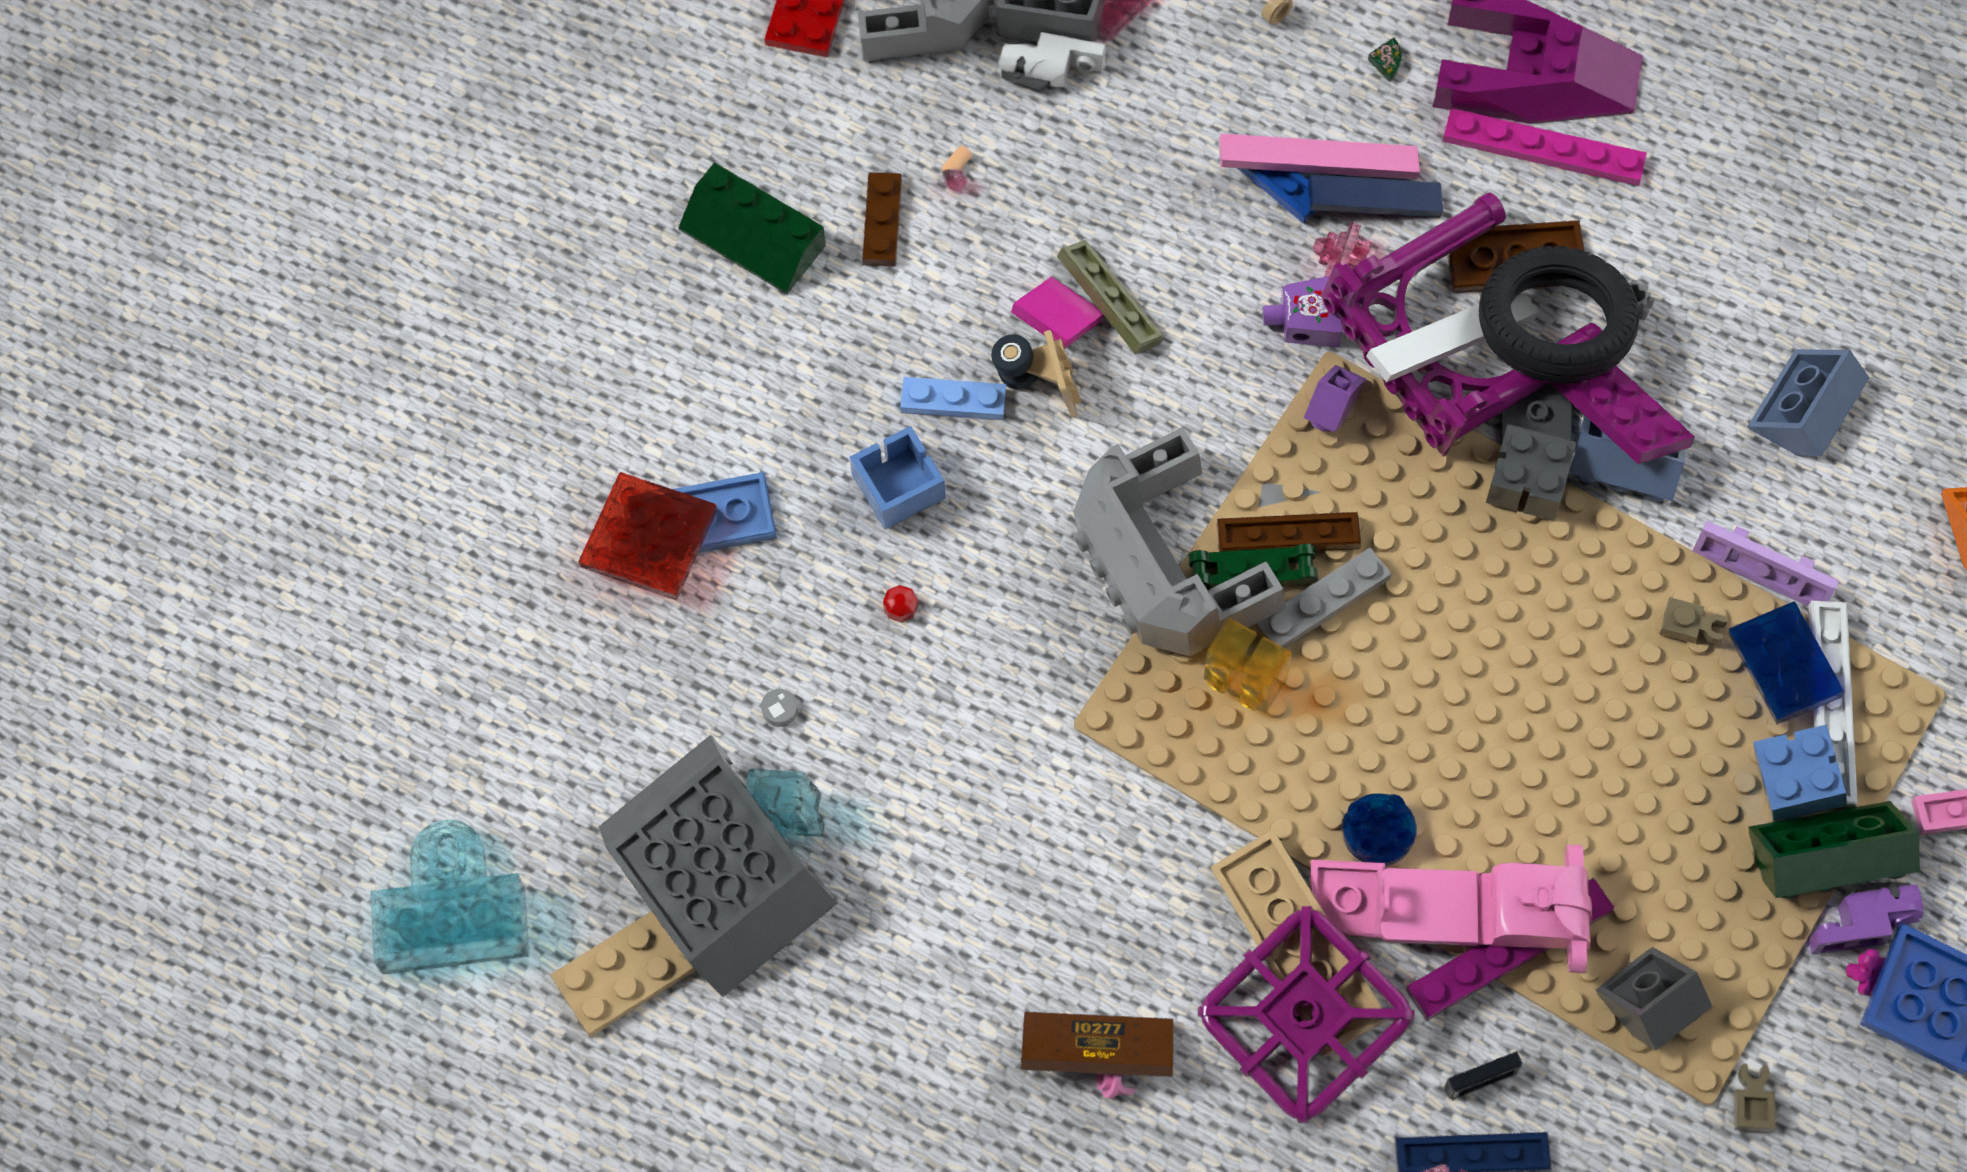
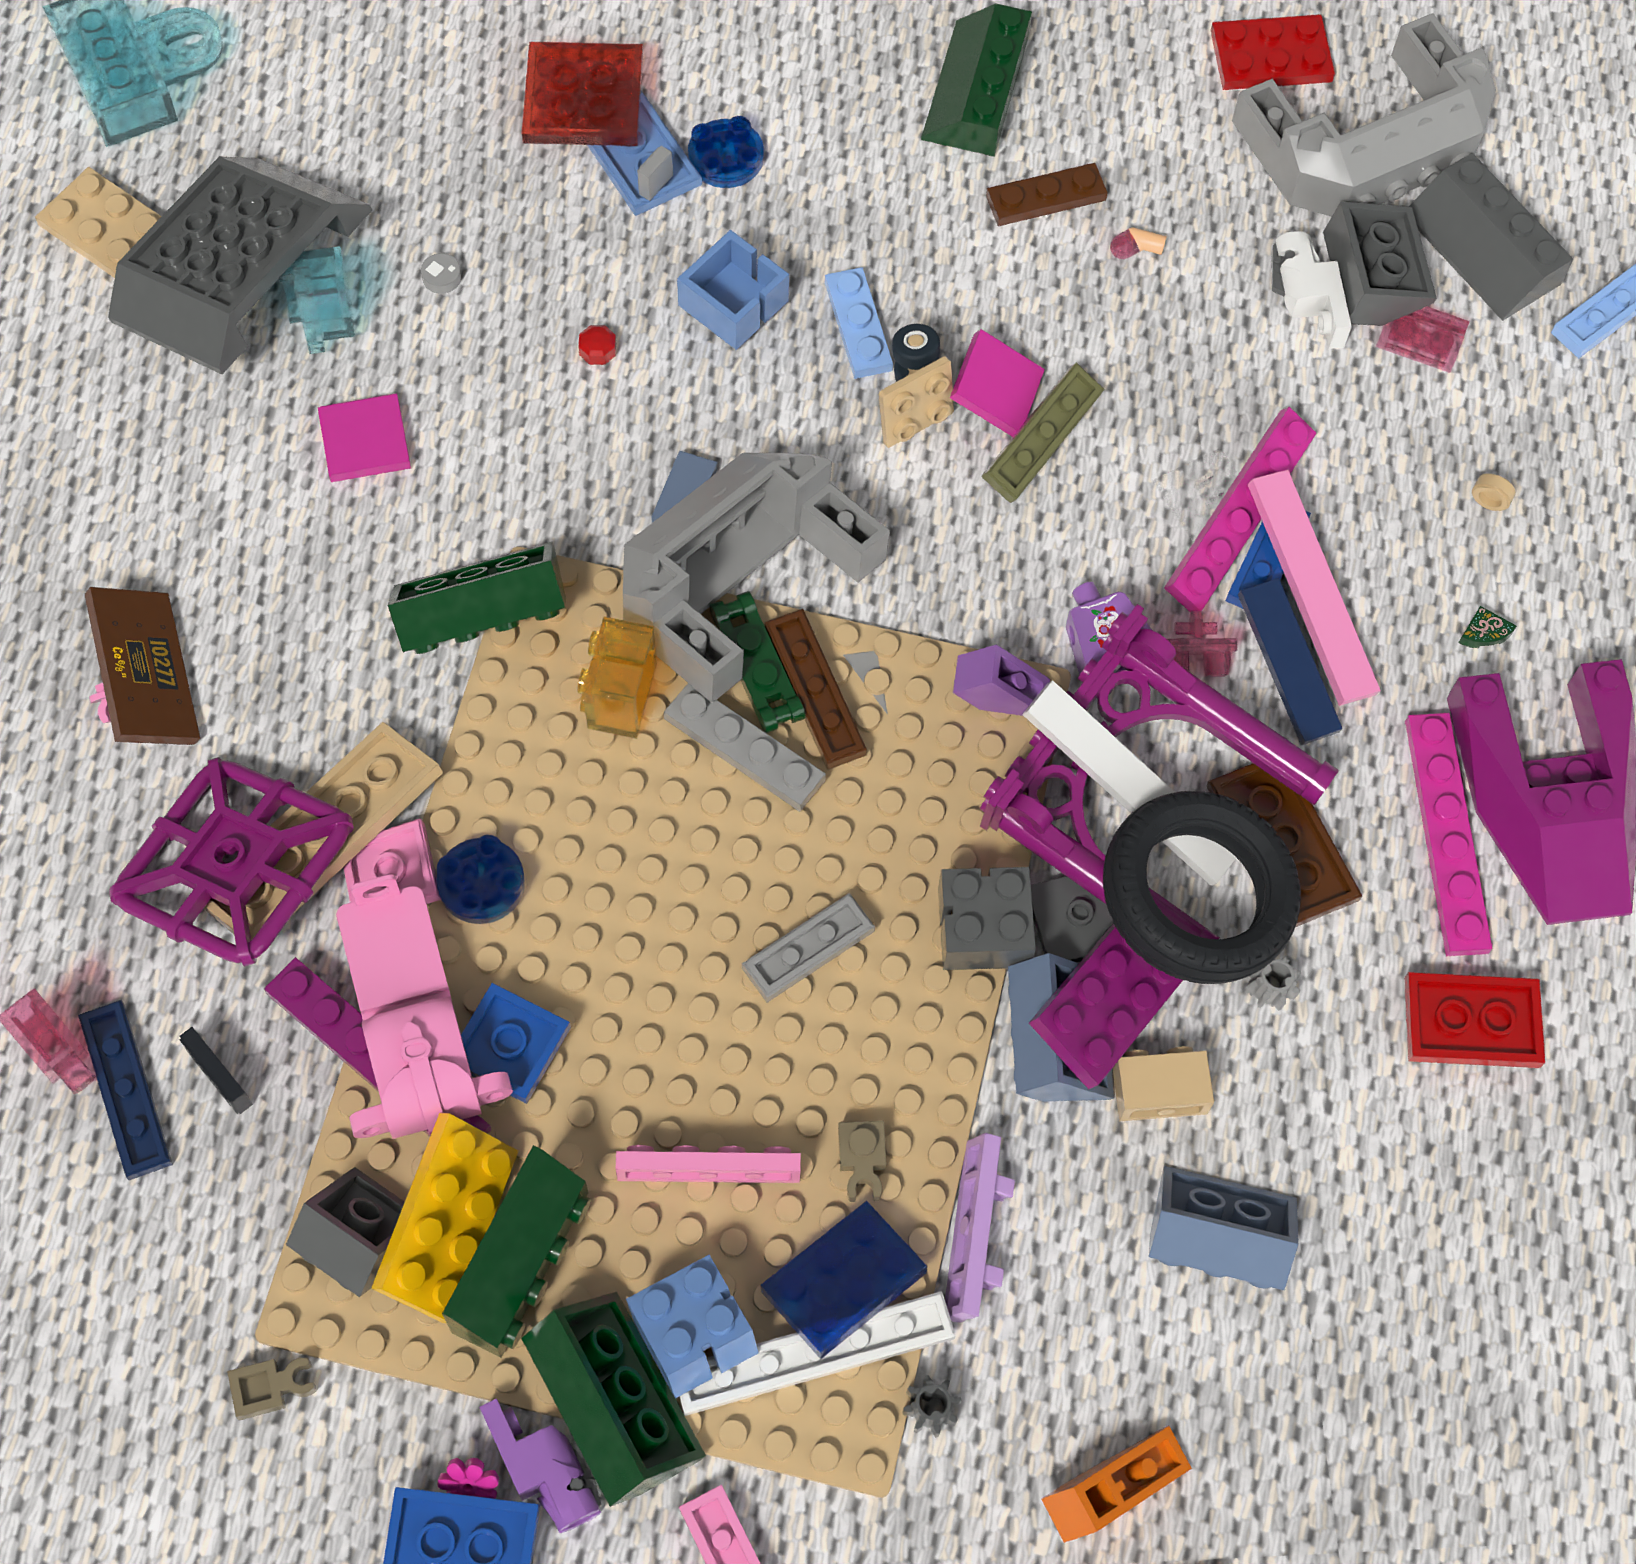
camera: 65 degrees right, 0 degrees up
(743, 445) = (726, 152): none -> clear blue tile
(757, 502) = (655, 172): none -> light grey tile
(924, 814) = (364, 437): none -> dark pink tile
(1068, 578) = (685, 476): none -> sand blue tile
(1122, 758) = (477, 598): none -> dark green slope
(1231, 183) = (1237, 513): none -> dark pink plate
(1510, 607) = (808, 947): none -> light grey tile
(1527, 836) = (513, 1039): none -> blue plate
(1666, 742) = (691, 1165): none -> bright pink plate
(1668, 924) = (444, 1215): none -> yellow plate
(1693, 397) = (1162, 1084): none -> tan brick
(1697, 185) = (1474, 1020): none -> red plate
(1708, 883) = (517, 1253): none -> dark green slope
(1887, 646) = (936, 1418): none -> dark grey gear

